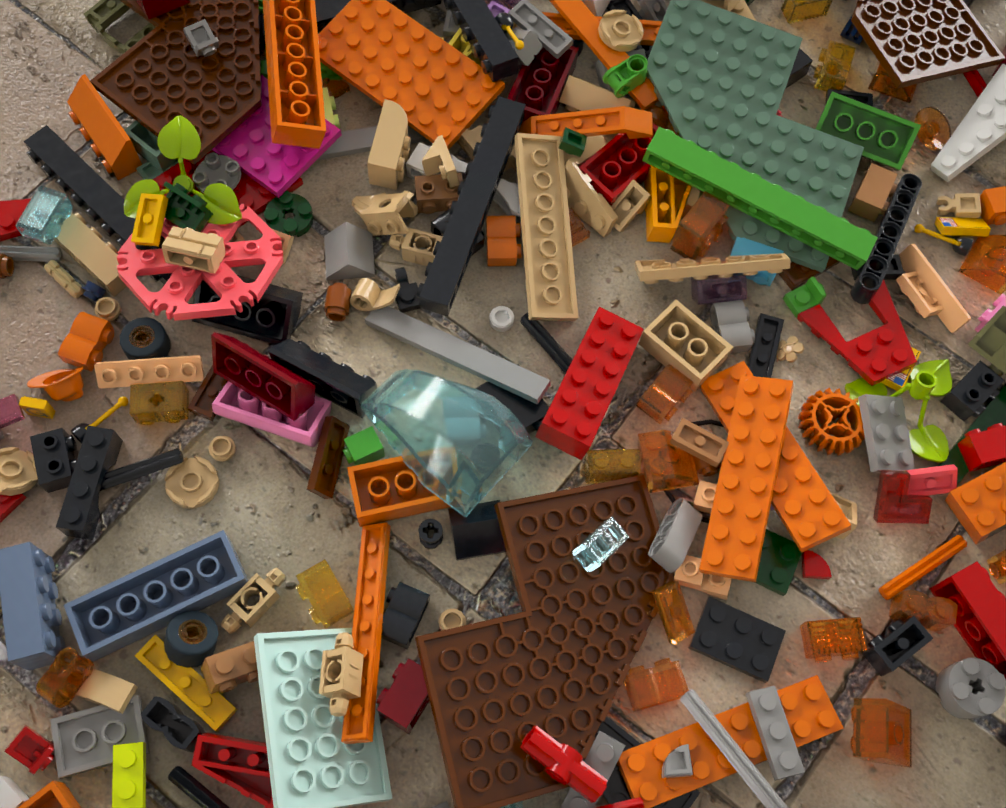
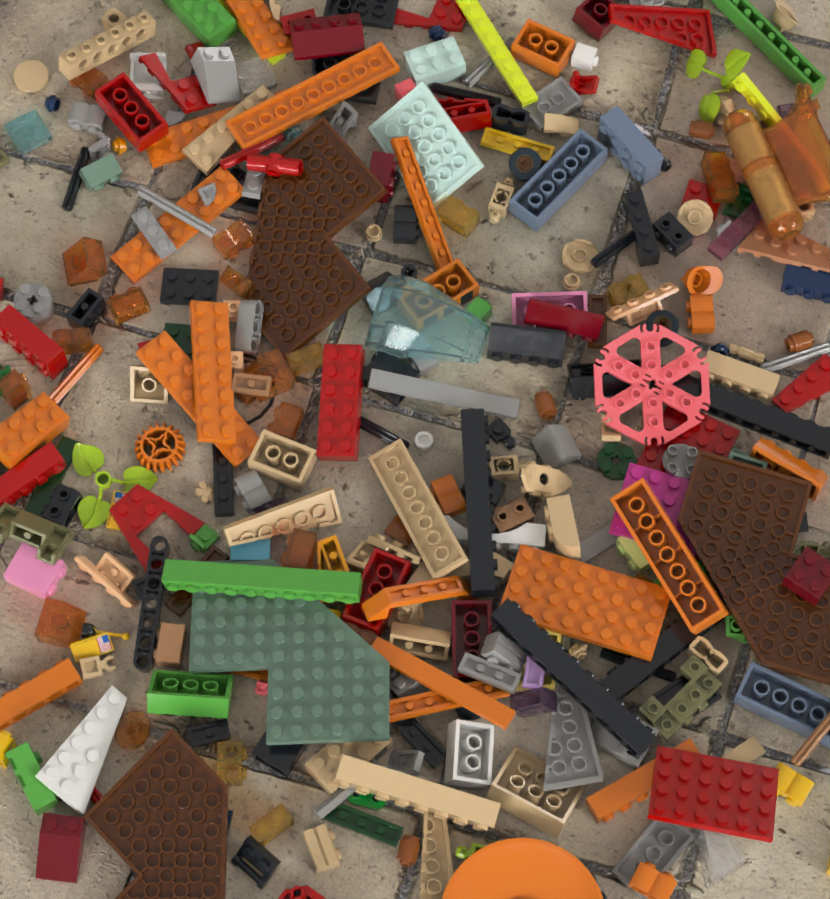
camera: 165 degrees right, 0 degrees up
(37, 407) = (705, 260): yellow tile -> none
(44, 215) = (779, 375): clear light blue brick -> none
(63, 678) = (588, 119): clear orange piece -> none
(80, 430) = (666, 258): hinge -> none
(107, 308) = (703, 342): tan plate -> none
(149, 219) = (697, 386): yellow plate -> none
(180, 141) = (702, 440): lime plant -> none
(184, 209) = (678, 403): dark green bracket -> none
(193, 249) = (652, 373): tan brick -> none
(201, 38) = (746, 543): light grey bracket -> none
(230, 668) = (492, 157): medium nougat brick -> none
(328, 457) = (498, 297): reddish brown plate -> none
(341, 674) = (423, 166): tan piece -> none
(369, 297) = (520, 417): tan panel -> none
(439, 160) = (515, 527): tan slope -> none
(507, 24) = (519, 659): hinge -> none
(572, 142) = (421, 571): dark green plate -> none
(587, 553) = (303, 292): clear light blue slope -> none
(620, 30) = (421, 690): tan tile -> none
(625, 77) = (402, 642): bright green piece -> none
(886, 433) = (120, 447): light grey plate -> none
(895, 505) = (105, 403): clear red plate -> none
(933, 480) = (89, 425): coral hinge -> none

